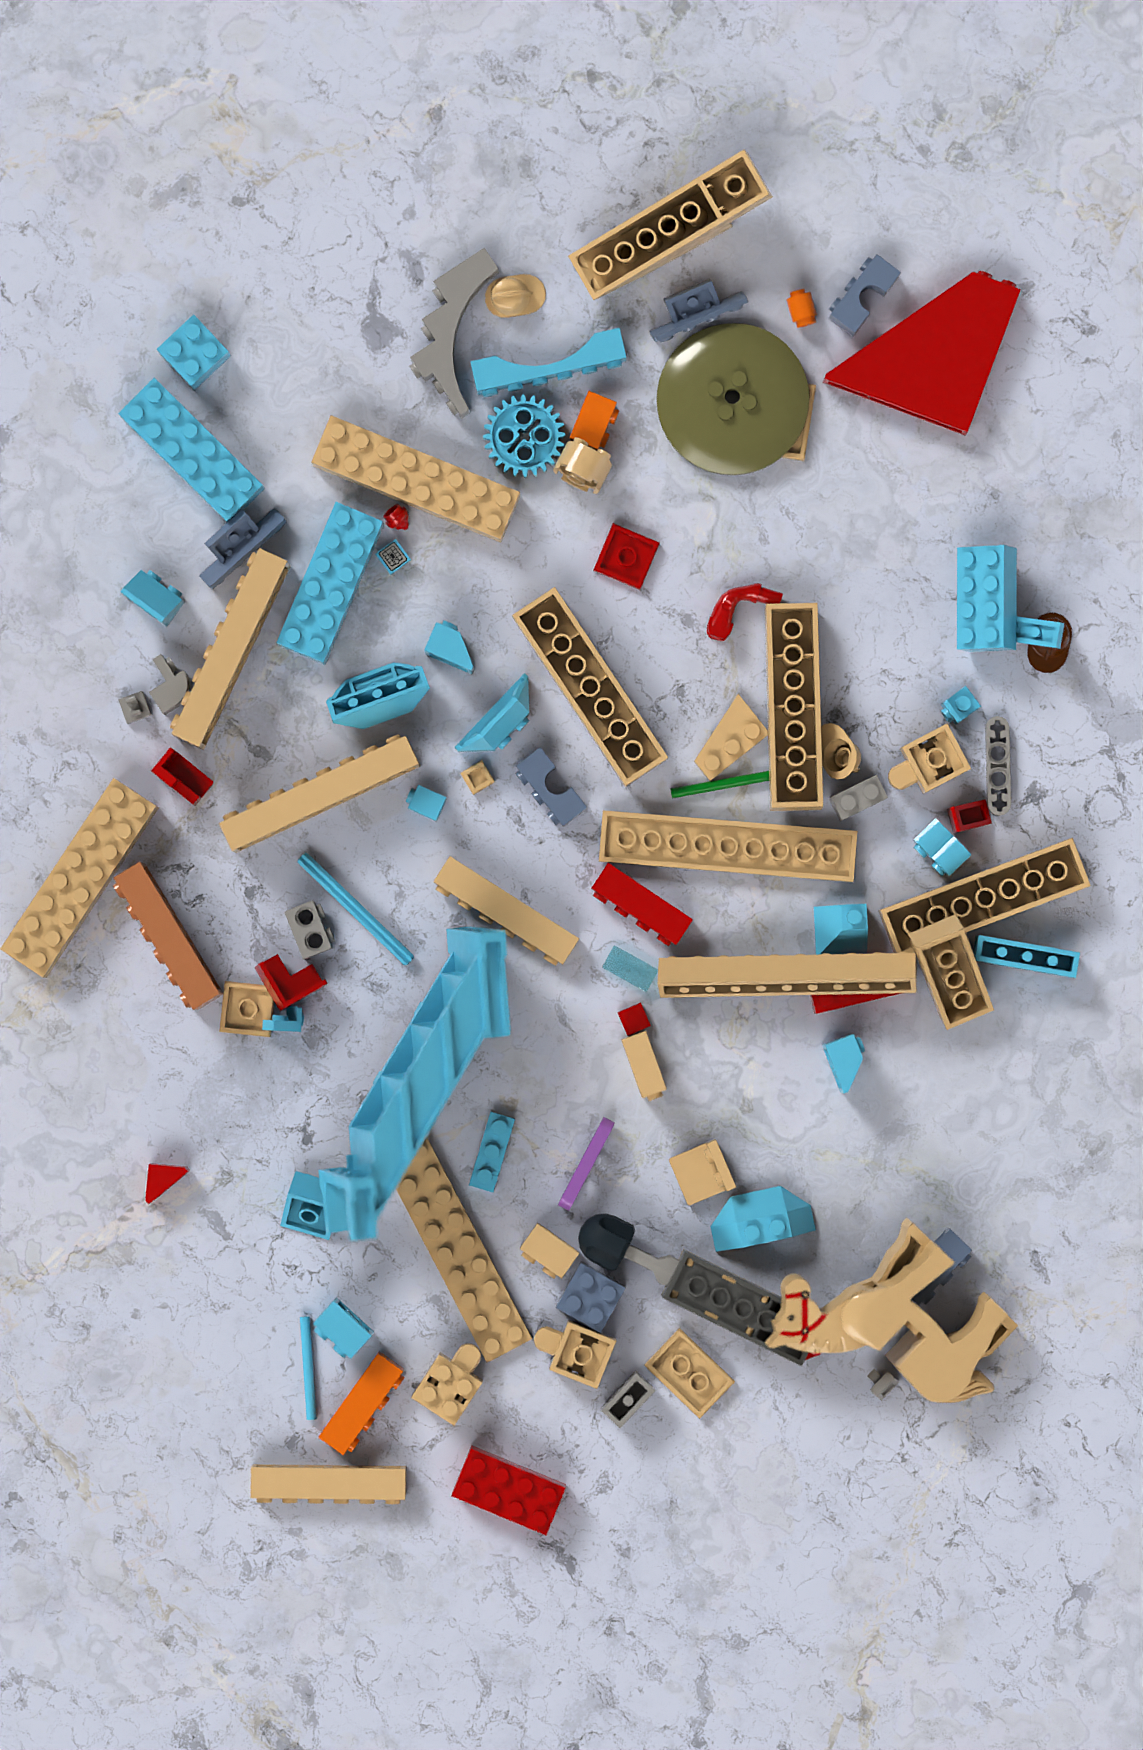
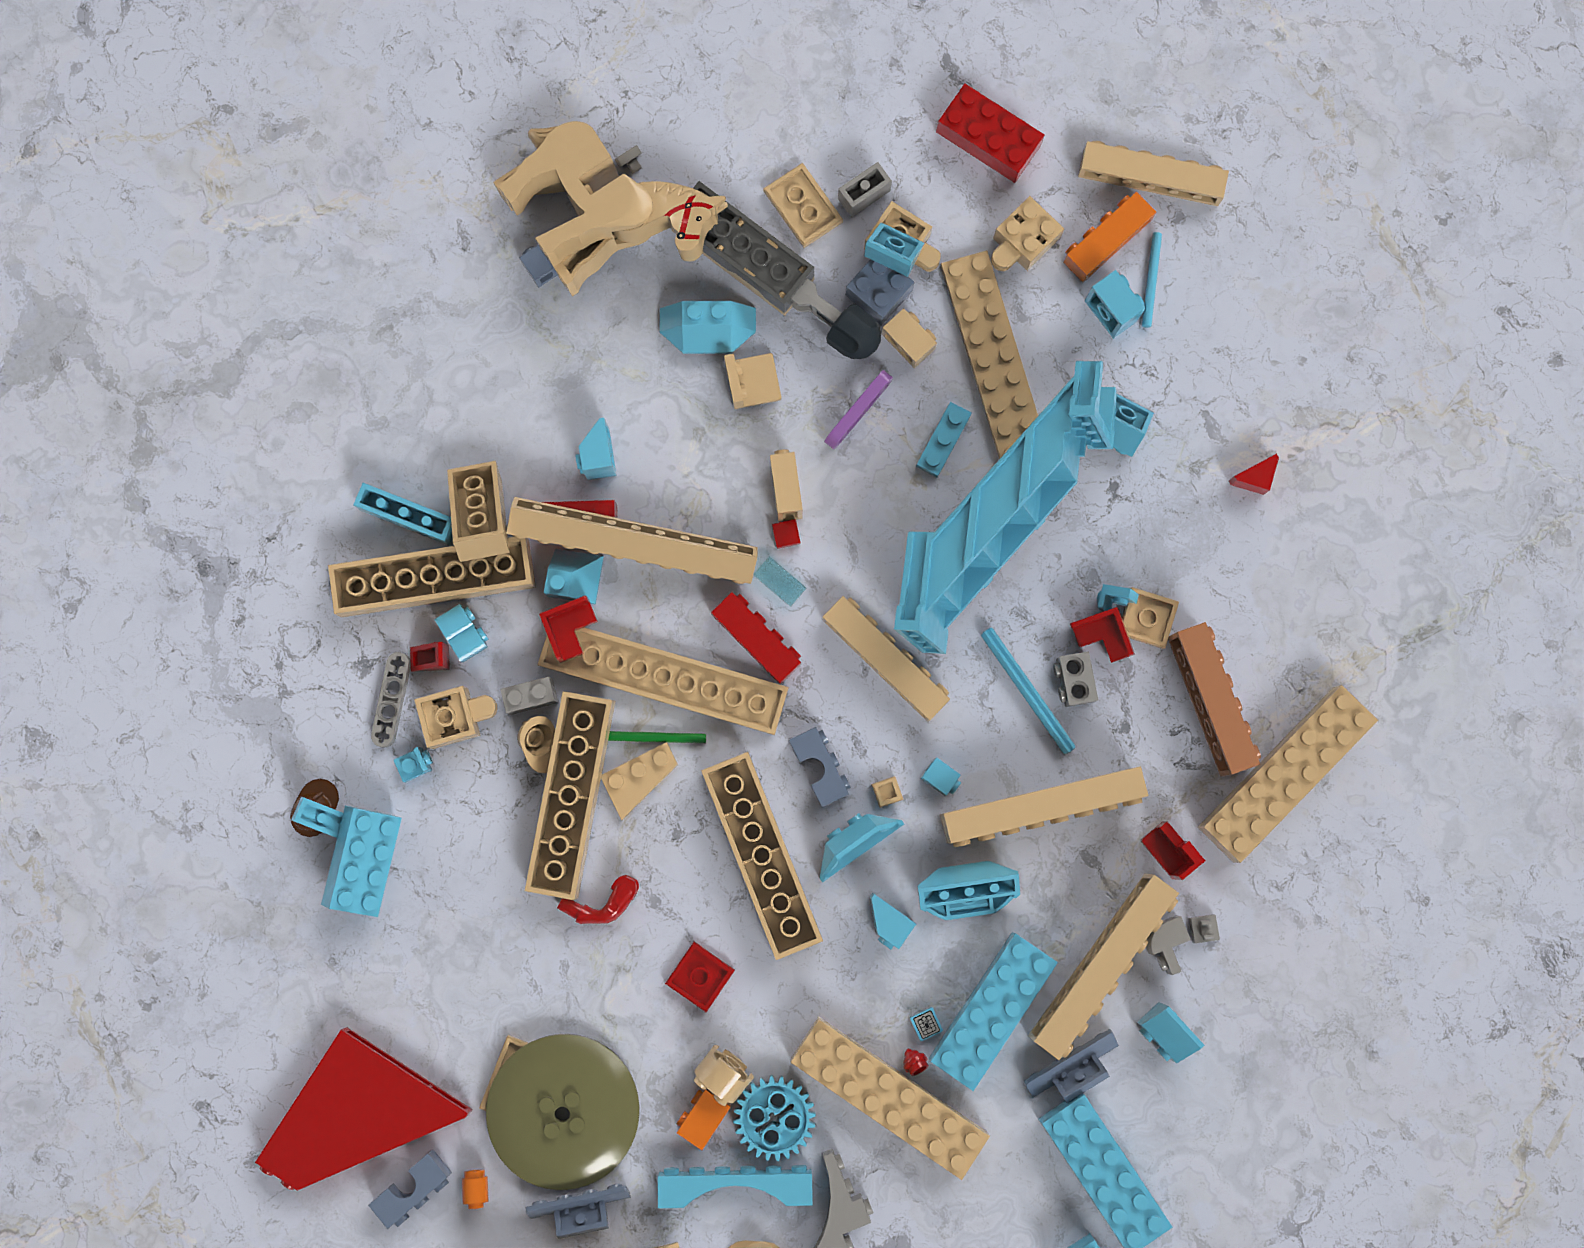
camera: 165 degrees left, 5 degrees down
(583, 1336) = (893, 249): none -> medium azure slope
(840, 875) = (562, 623): none -> red panel

